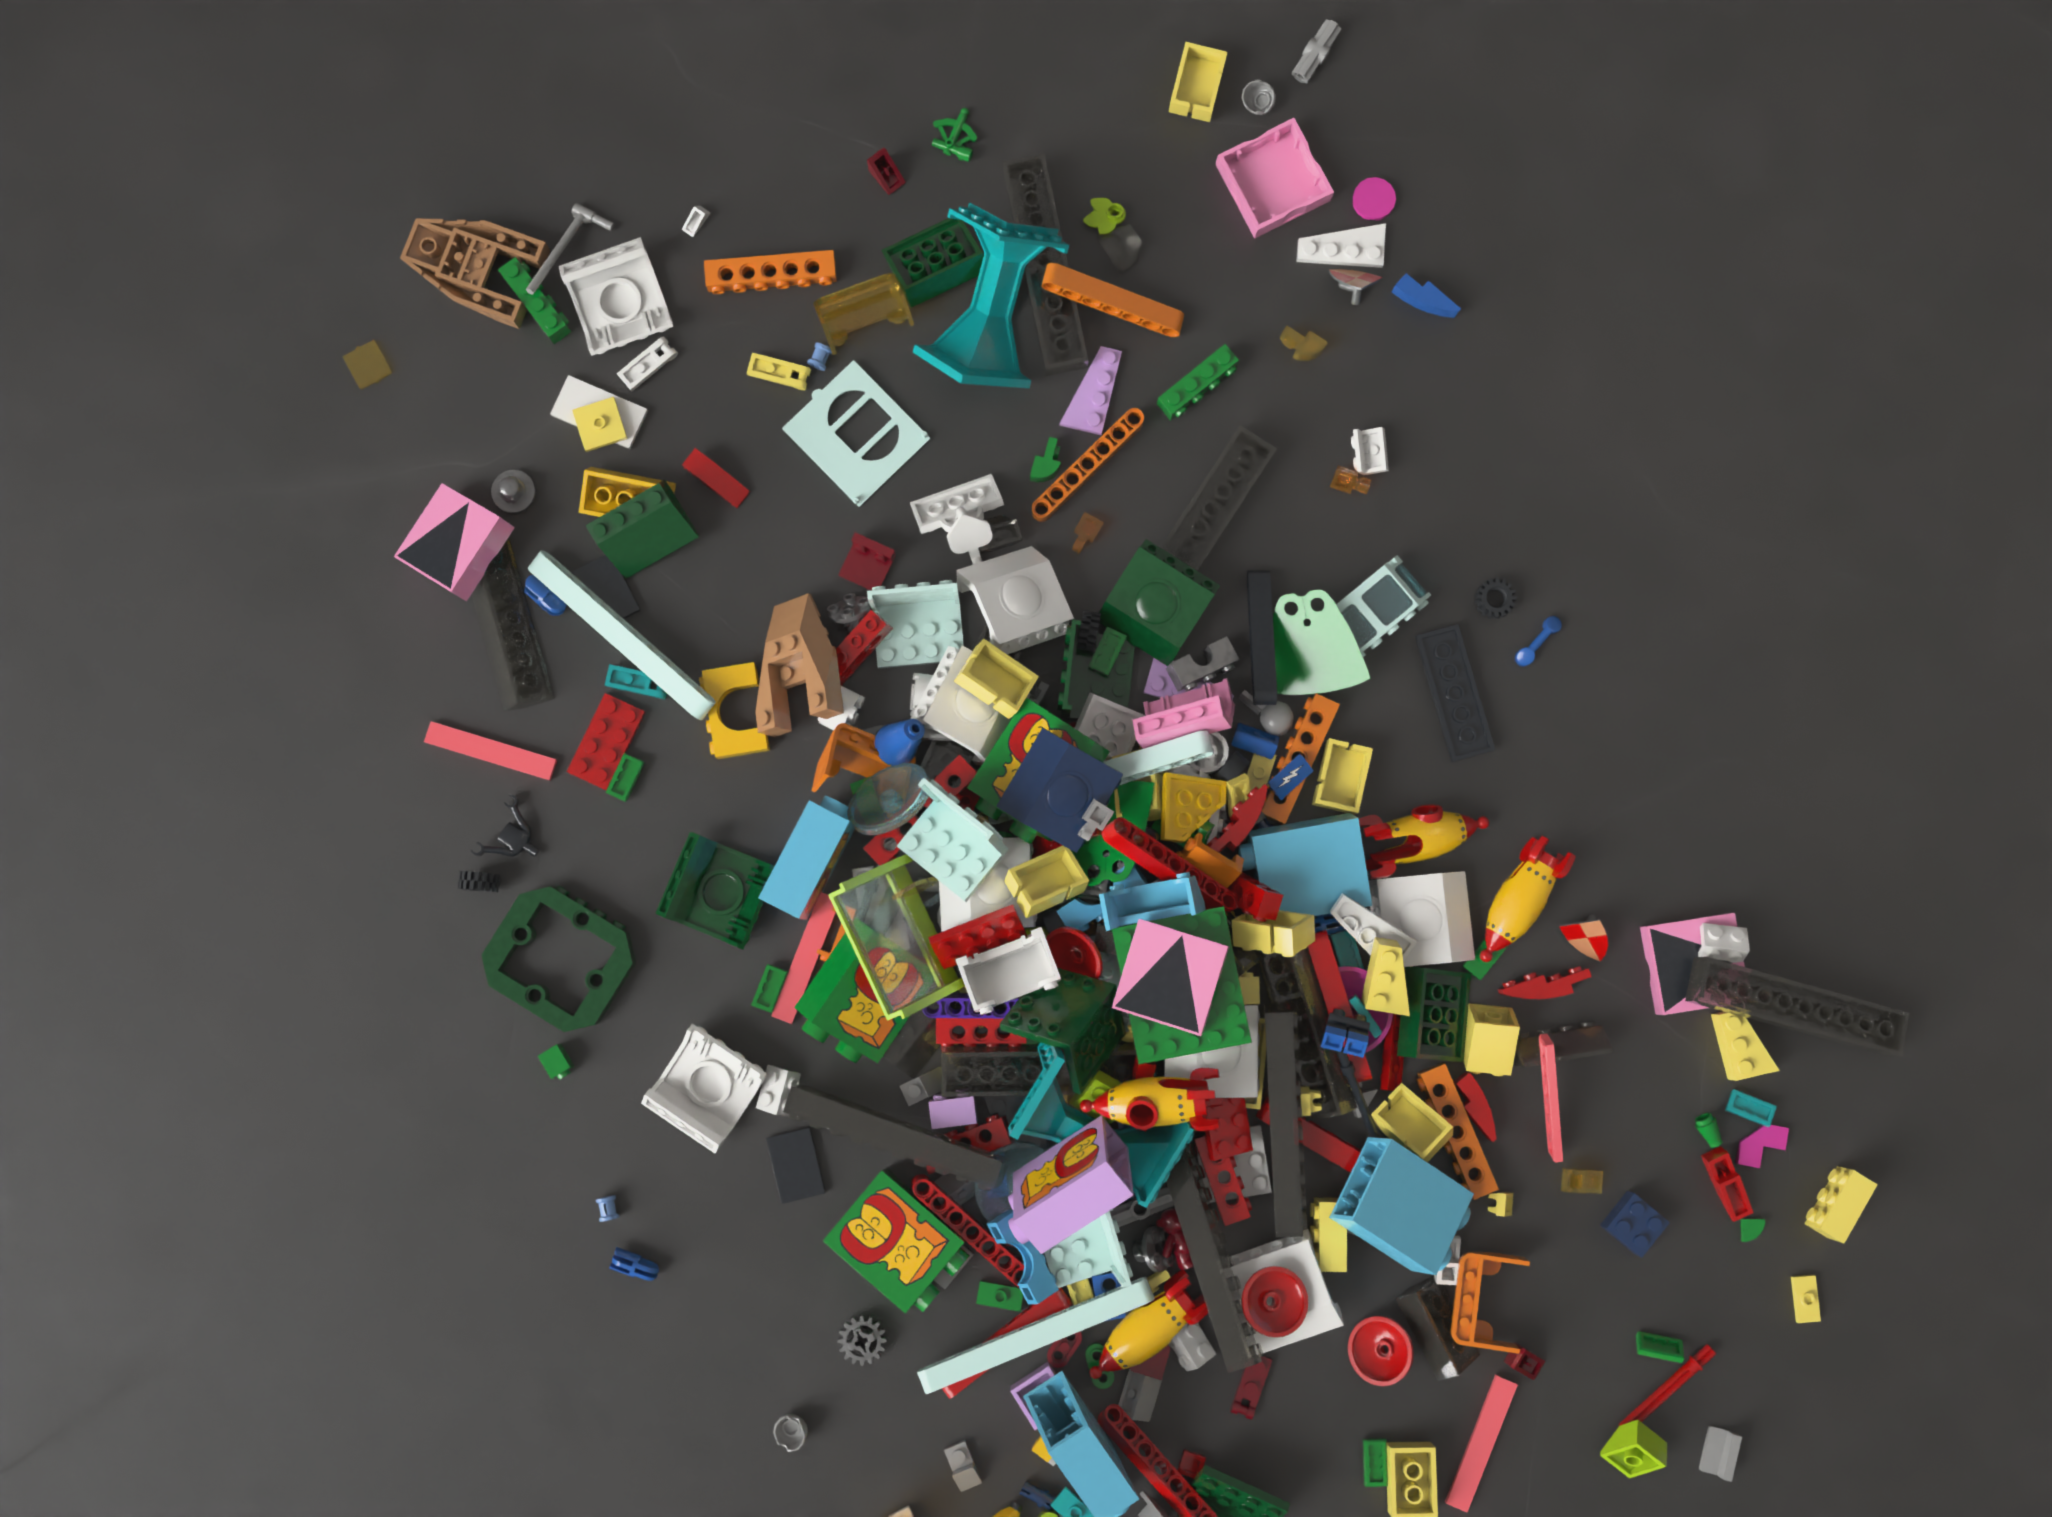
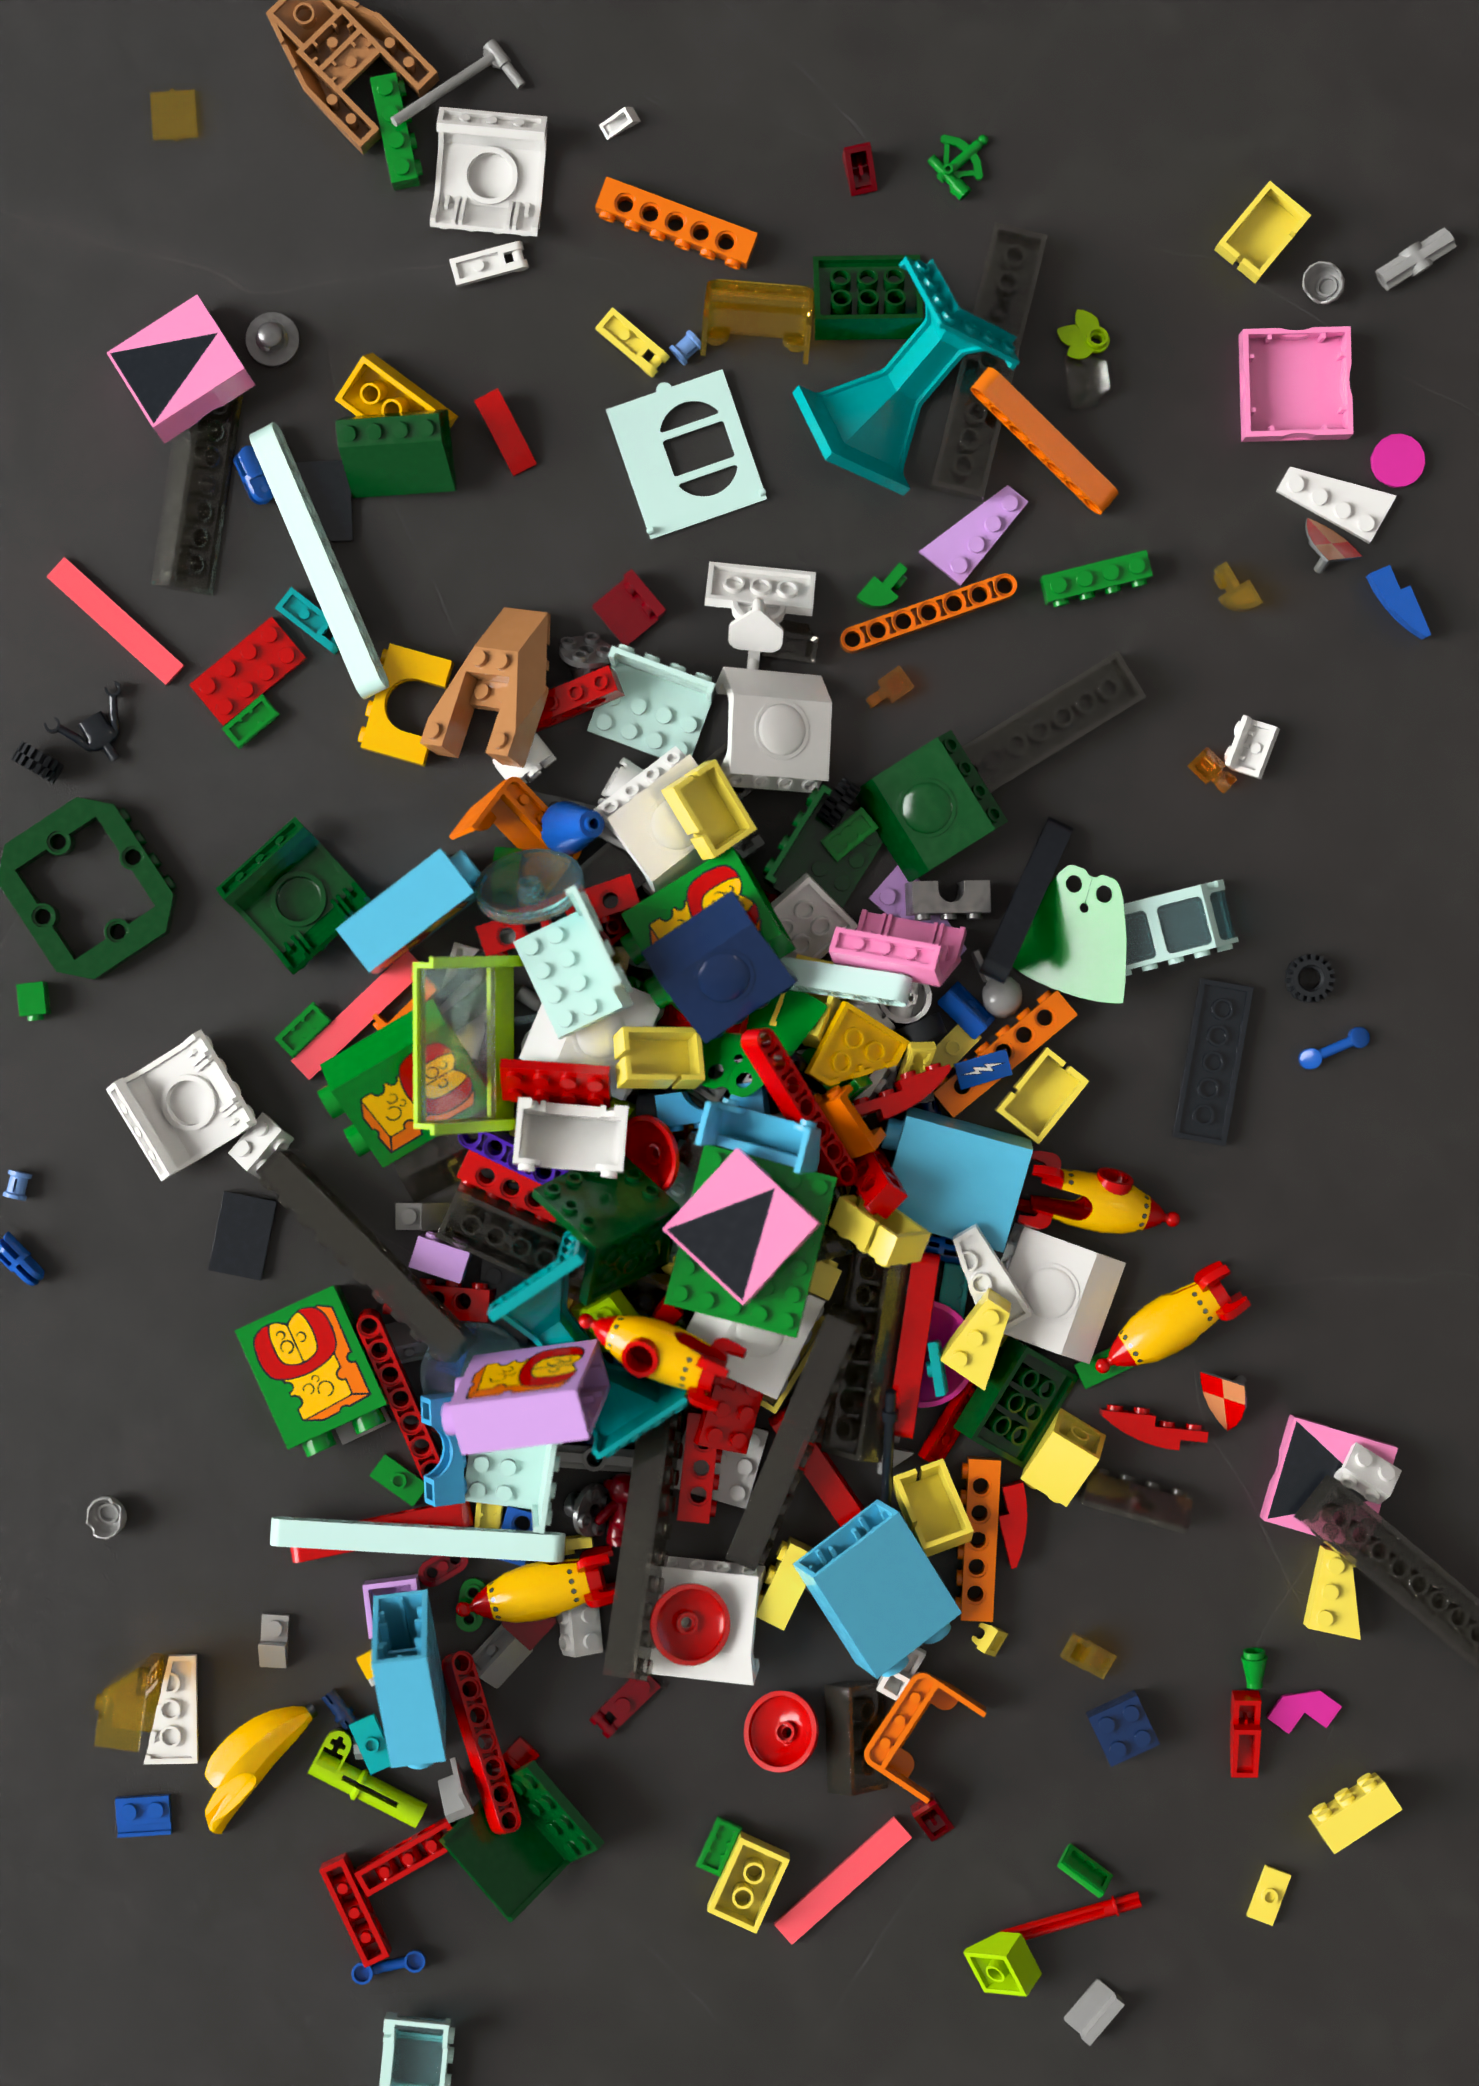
camera: 30 degrees right, 5 degrees up
(579, 394) = (409, 293): white tile -> none
(599, 424) = (403, 309): light yellow plate -> none
(867, 1353) = (216, 1456): flat silver gear -> none
(915, 888) = (512, 997): clear yellow piece -> none
(1097, 817) = (744, 1015): light grey plate -> none
(1307, 1101) = (828, 1430): light yellow tile -> none
(1351, 1030) = (904, 1367): hips -> none
(1550, 1094) = (1095, 1550): coral tile -> none
(1750, 1108) = (1311, 1665): teal plate -> none
(1751, 1228) = (1247, 1793): green tile -> none

